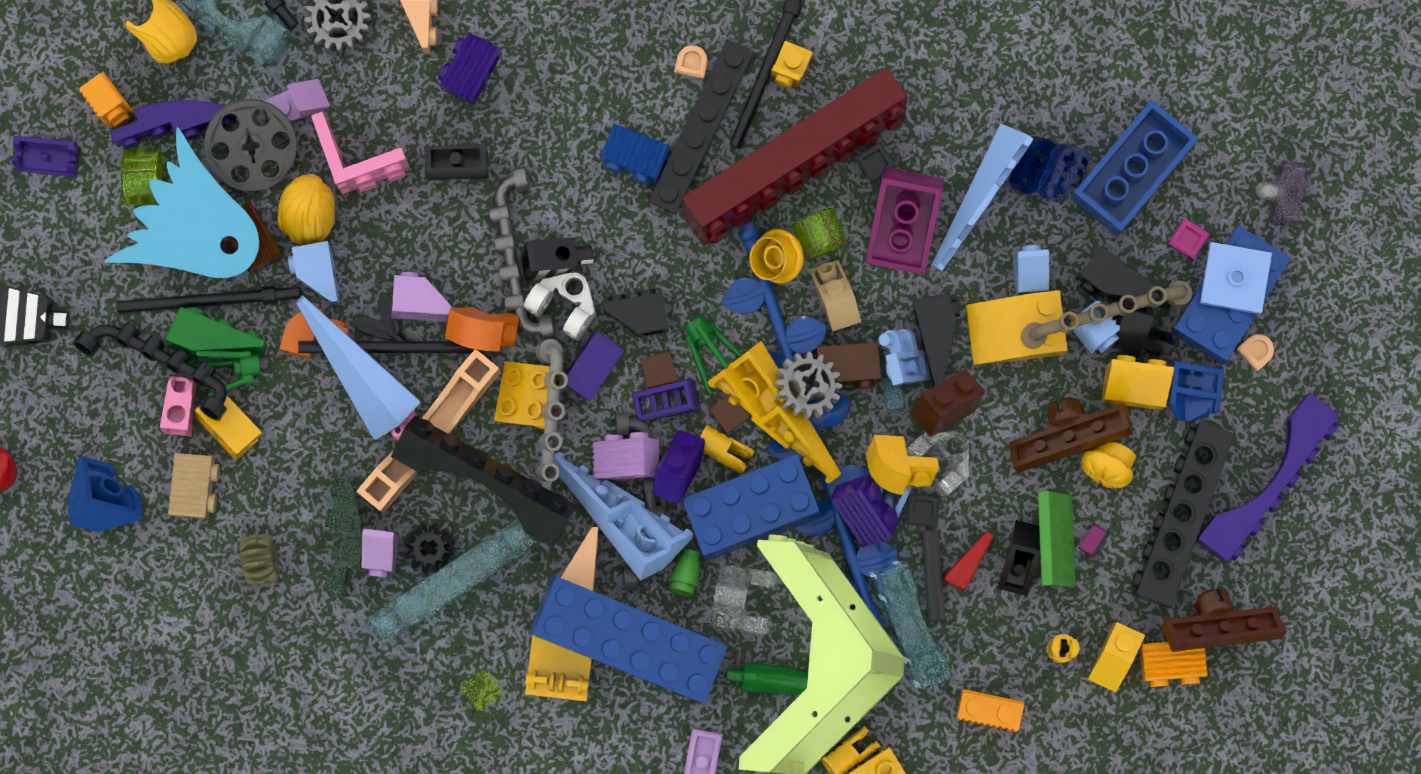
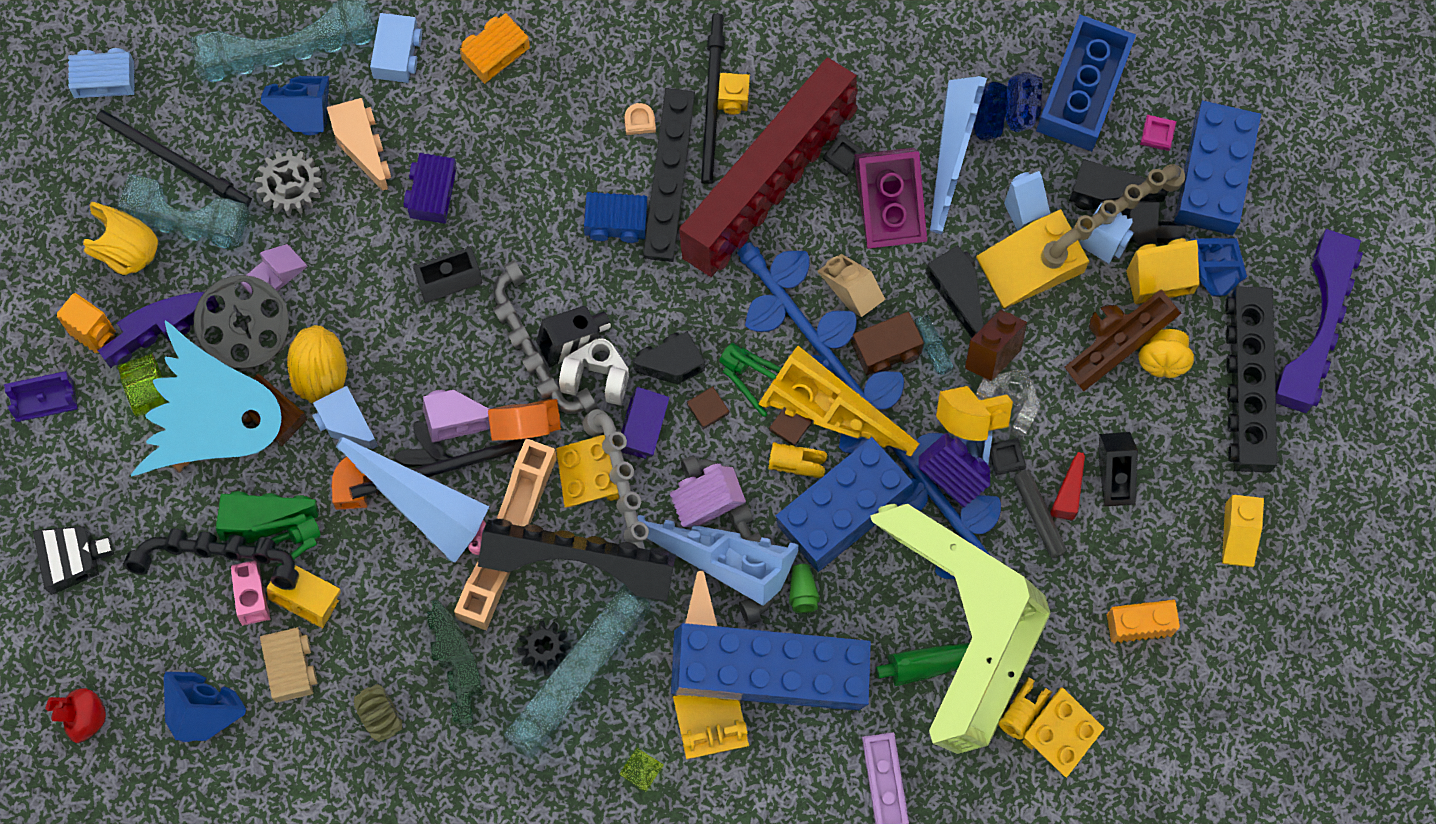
camera: 25 degrees left, 10 degrees down
(267, 295) = (304, 458): black bar -> none
(363, 174) = (359, 313): bright pink bracket -> none
(379, 552) = (495, 665): lavender slope -> none
(678, 466) = (761, 486): dark purple brick -> none
(692, 397) = (730, 443): dark purple slope -> none
(731, 598) = (858, 595): clear piece -> none
(777, 256) = (786, 261): yellow piece -> none
(796, 381) = (846, 373): light grey gear -> none
(819, 233) = (817, 229): clear neon green piece -> none
(900, 602) = (1016, 539): clear light blue arch -> none
(905, 362) = (941, 321): light blue plate -> none
(1054, 646) = (1182, 538): yellow hinge -> none
(1056, 539) = (1145, 438): bright green tile -> none
(1093, 540) = (1178, 431): magenta piece -> none
(1162, 664) = (1297, 517): light orange brick -> none
(1221, 624) = (1329, 466): reddish brown plate -> none
(1235, 278) = (1219, 145): light blue plate -> none
(1257, 350) = (1259, 211): light nougat tile -> none
(1285, 193) = (1231, 63): clear purple piece -> none

